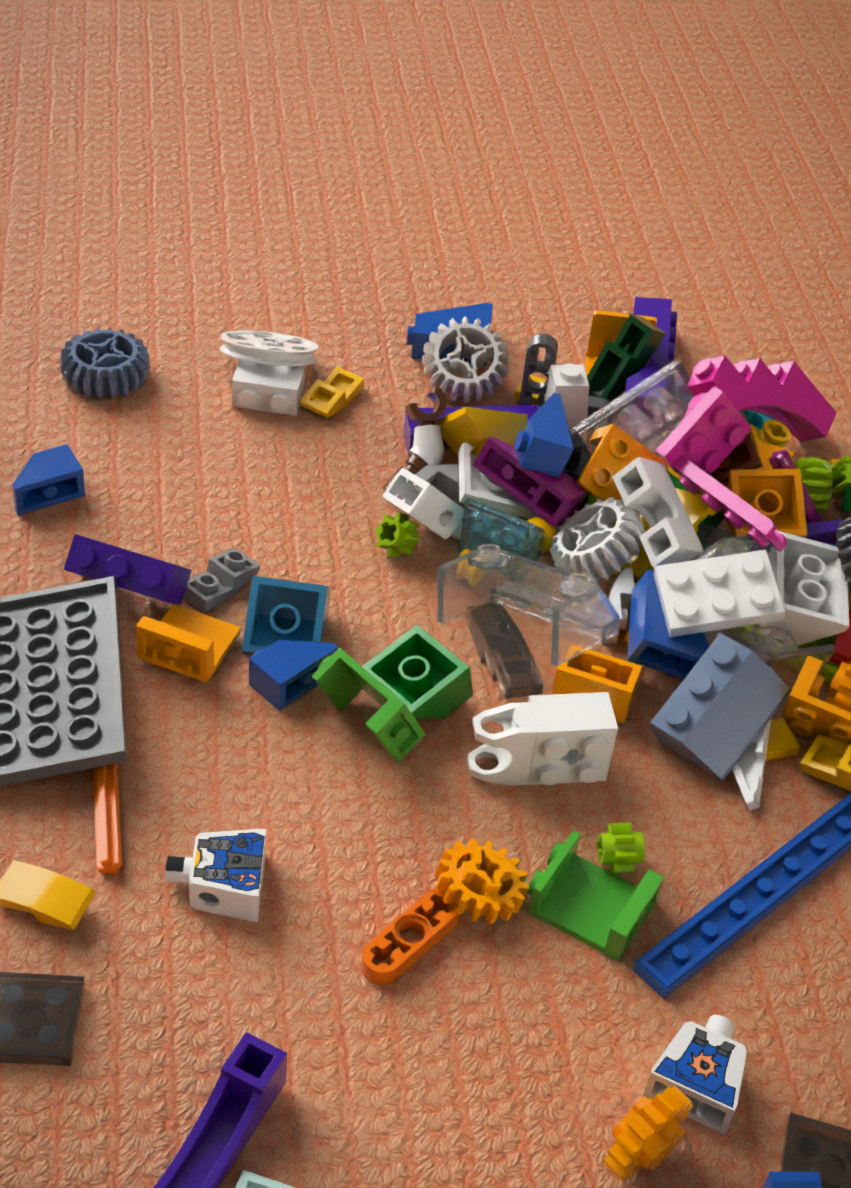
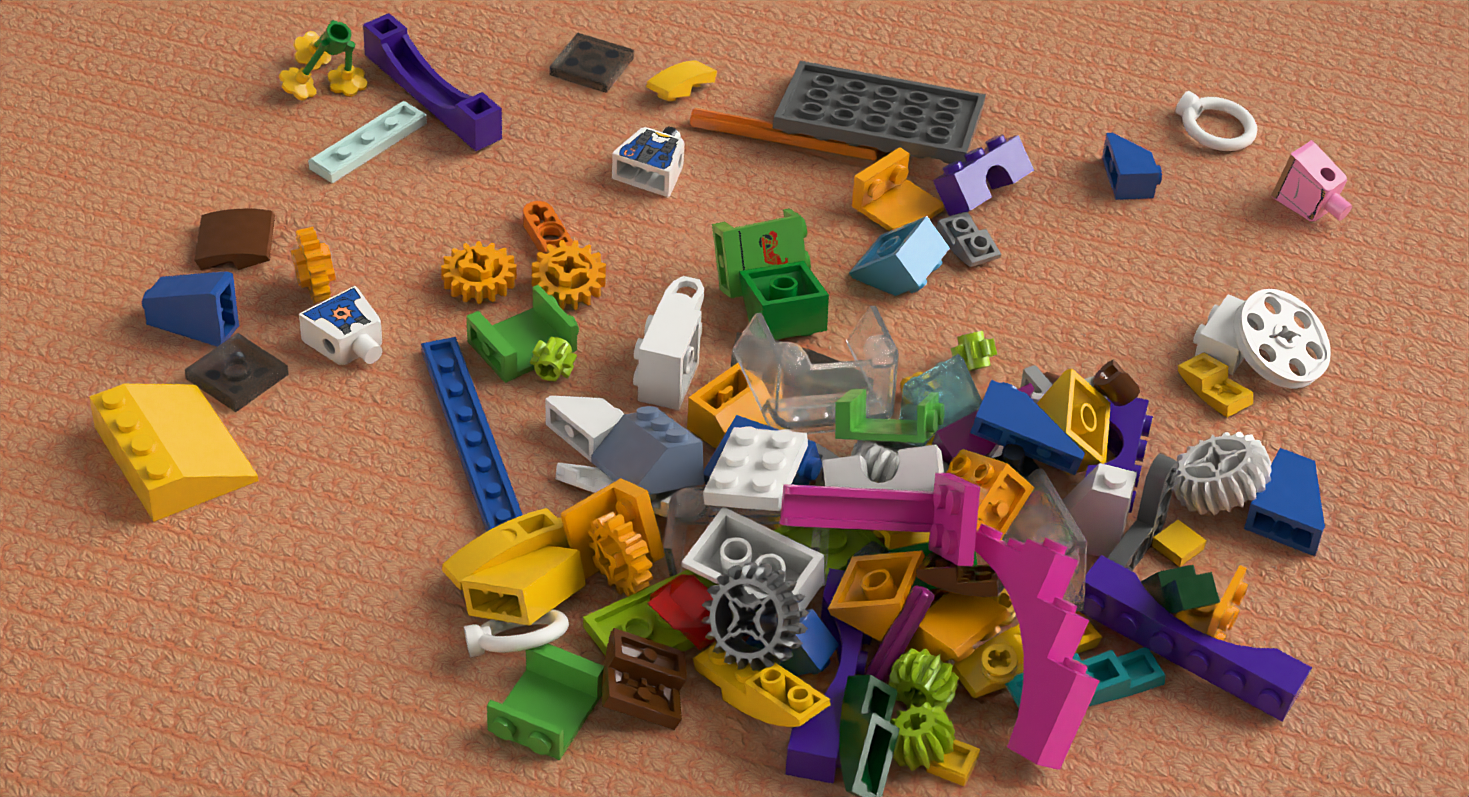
camera: 115 degrees right, 0 degrees up
(28, 355) = (1312, 185): none -> bright pink torso
(104, 363) = (1295, 237): sand blue gear -> none
(286, 669) = (835, 242): blue slope -> none
(425, 504) = (994, 356): white torso -> none
(525, 978) = (479, 272): none -> light orange gear
(579, 528) = (853, 424): none -> bright green panel
(686, 789) = (581, 421): none -> white slope

